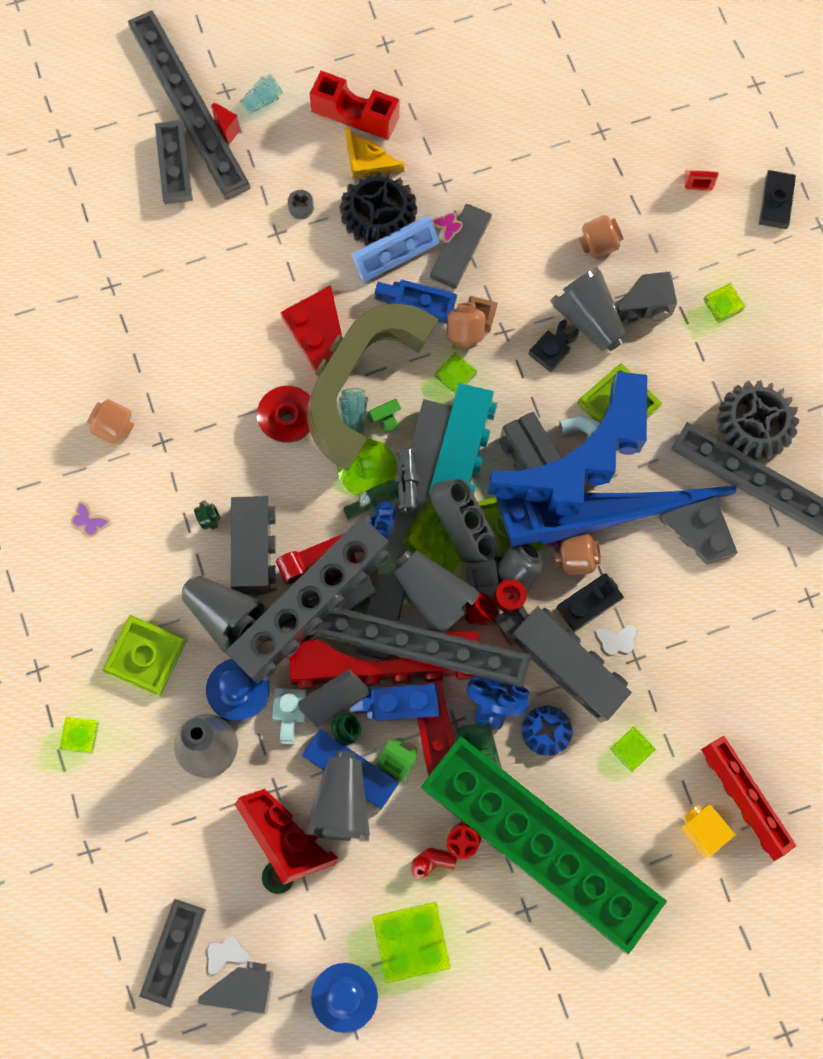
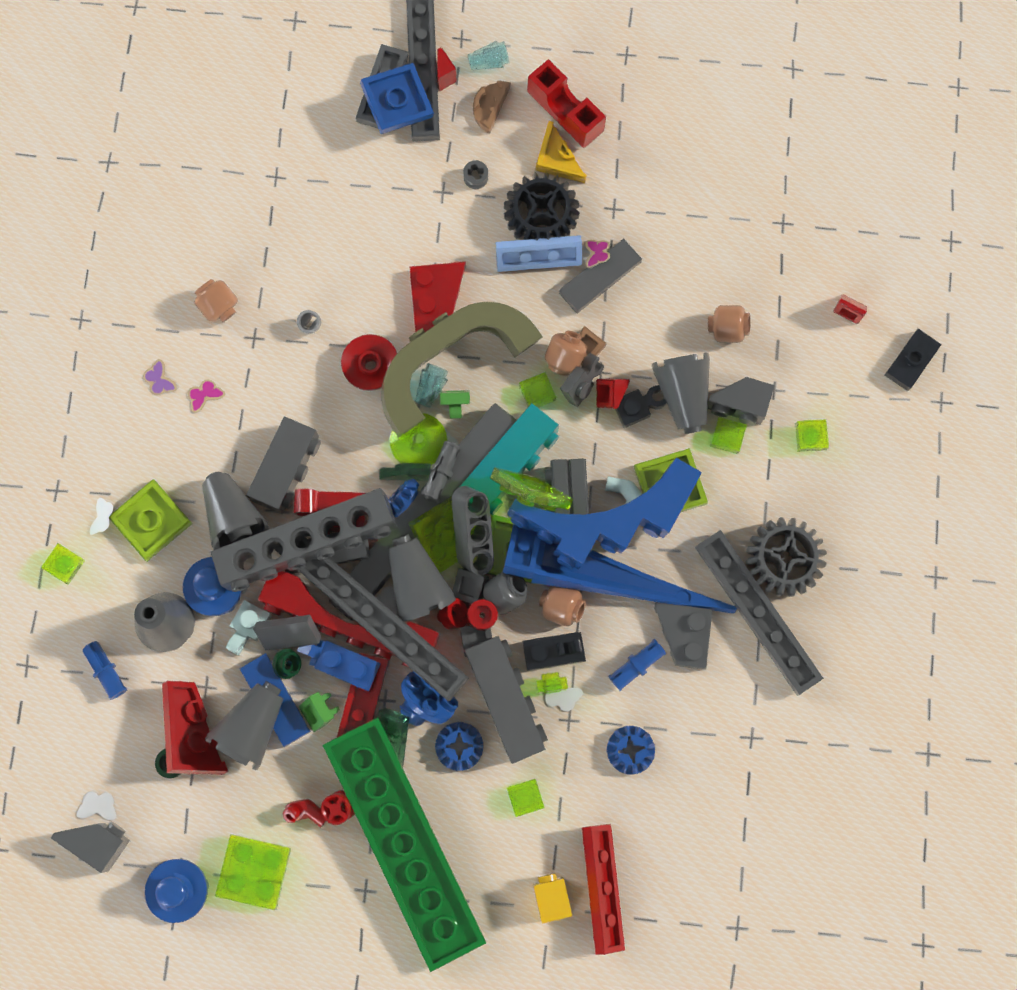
camera: 25 degrees right, 5 degrees up
(95, 668) = (102, 522): none -> white sticker
(136, 517) = (200, 395): none -> dark pink sticker
(169, 818) = (104, 670): none -> blue axle
(172, 953) = (54, 784): dark grey tile -> none
(195, 164) = (396, 98): none -> blue plate
(203, 401) = (305, 317): none -> light grey hinge
(207, 515) = (259, 422): dark green plate -> none
(280, 137) = (489, 103): none -> medium nougat tile
(427, 298) = (536, 307): blue hinge -> none
(492, 349) = (579, 382): none -> dark grey plate
(500, 459) = (530, 490): none -> clear neon green plate
(524, 343) = (610, 392): none -> red slope
(604, 631) = (551, 683): none -> clear neon green plate
(649, 336) = (728, 435): none -> clear neon green plate
(673, 578) = (637, 665): none -> blue pin
(706, 673) = (622, 761): none -> blue gear

